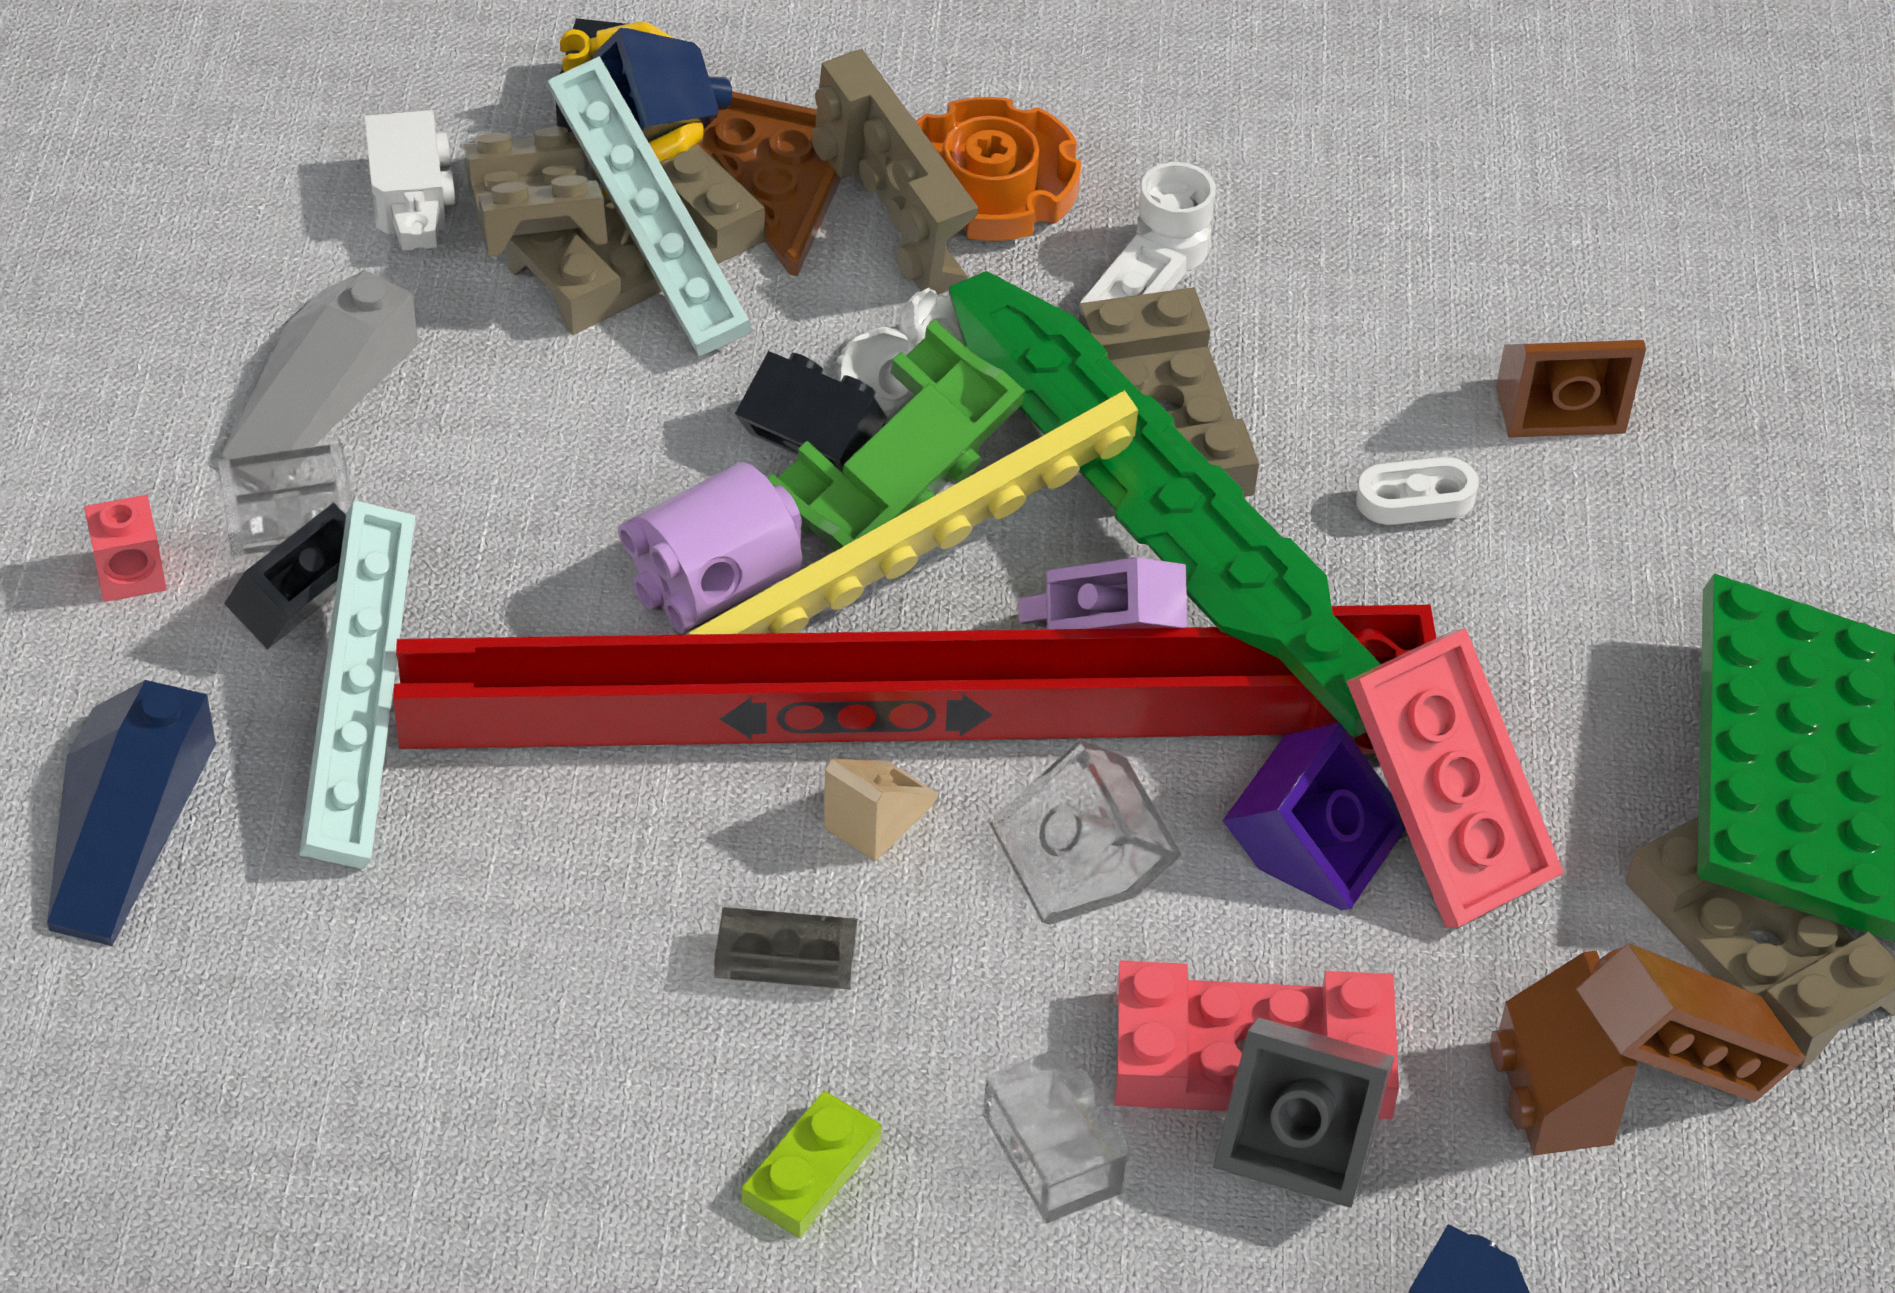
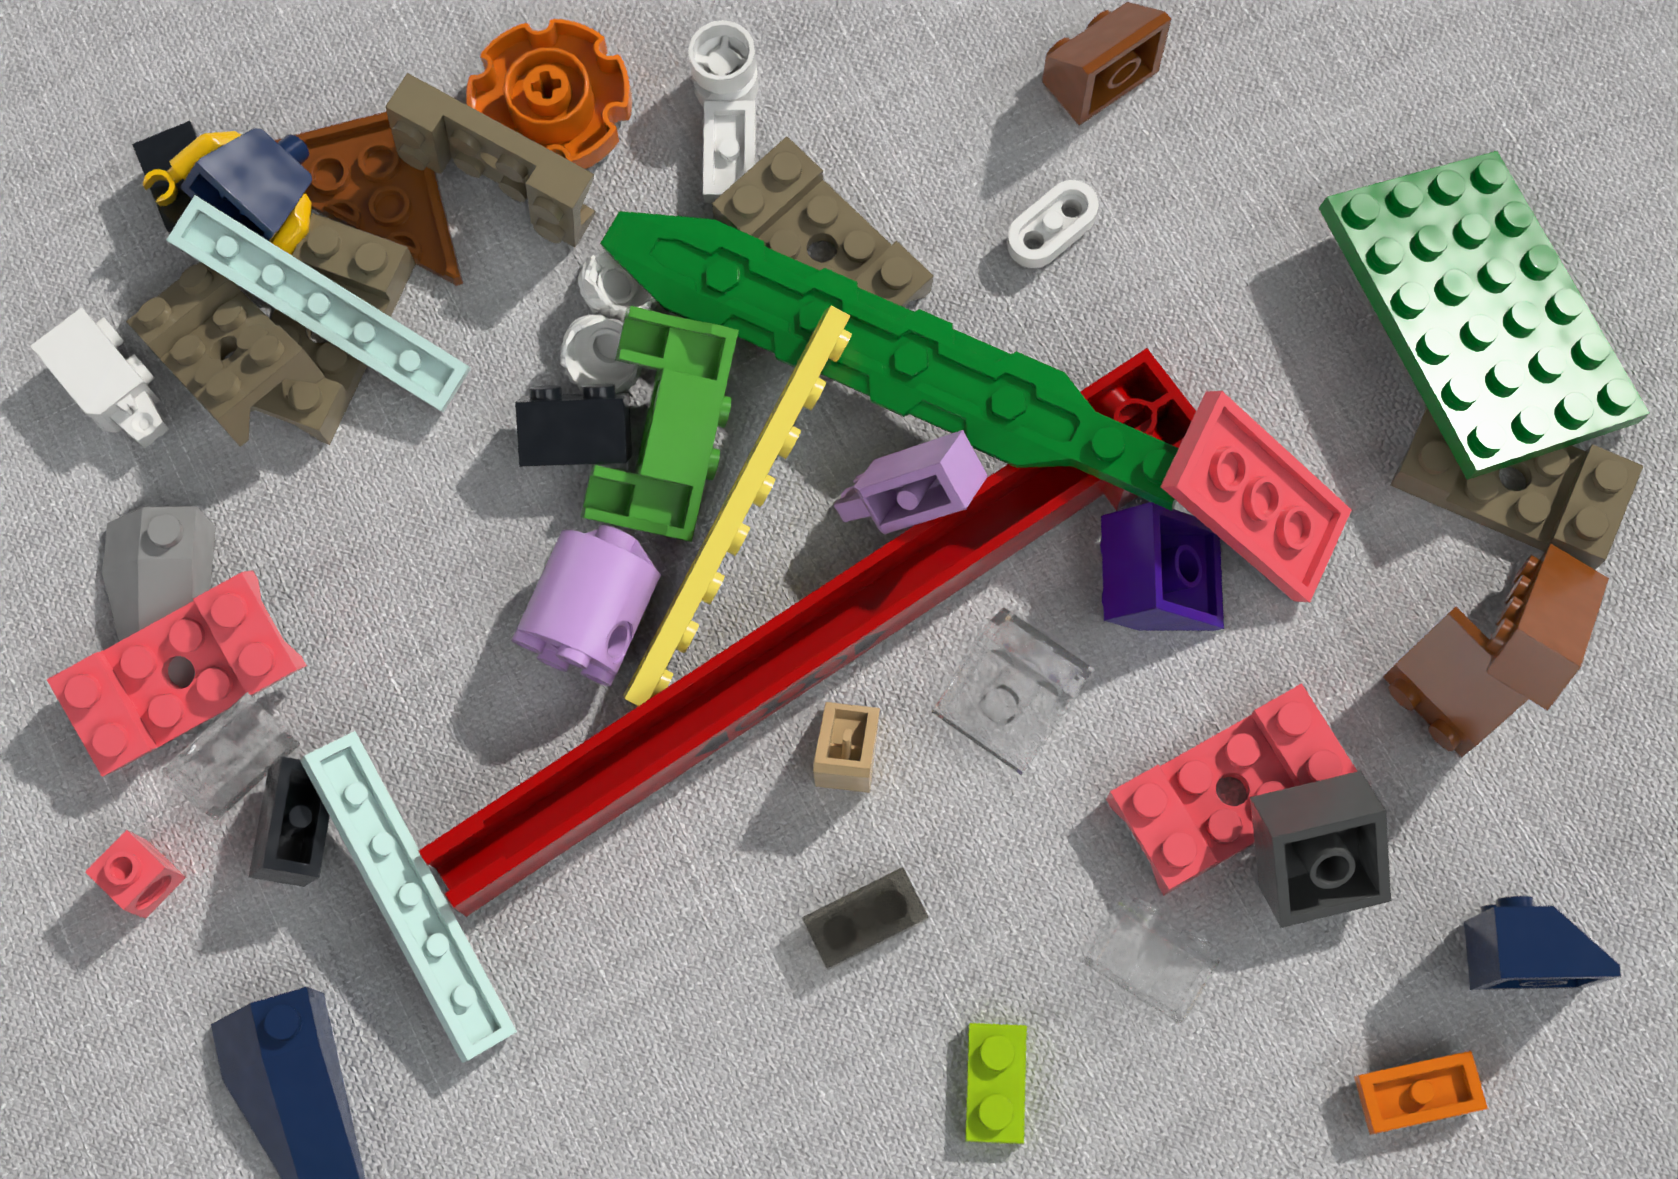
camera: 25 degrees left, 25 degrees up
(236, 405) = (124, 694): none -> coral piece

